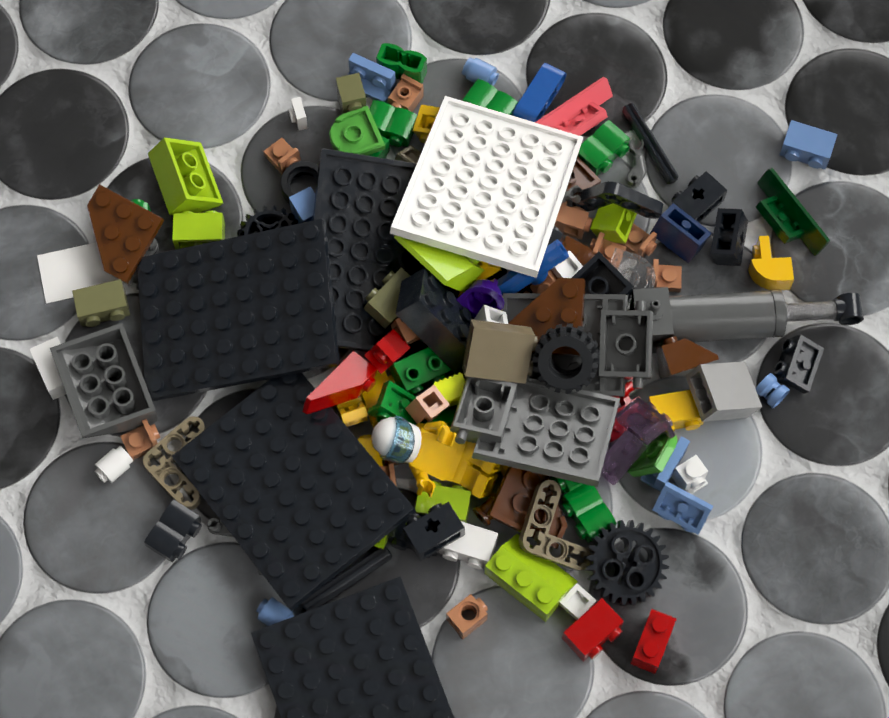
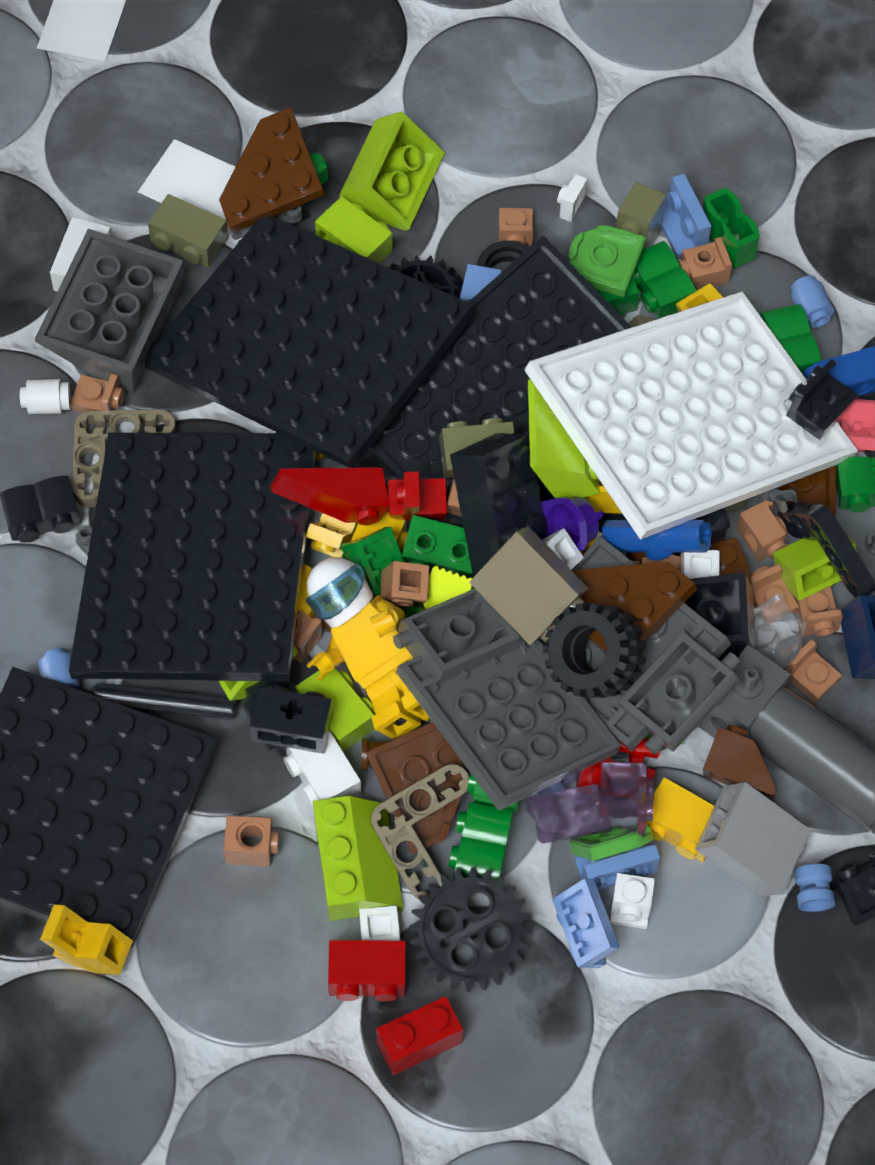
camera: 40 degrees right, 5 degrees down
(544, 125) = (820, 401): none -> black bracket

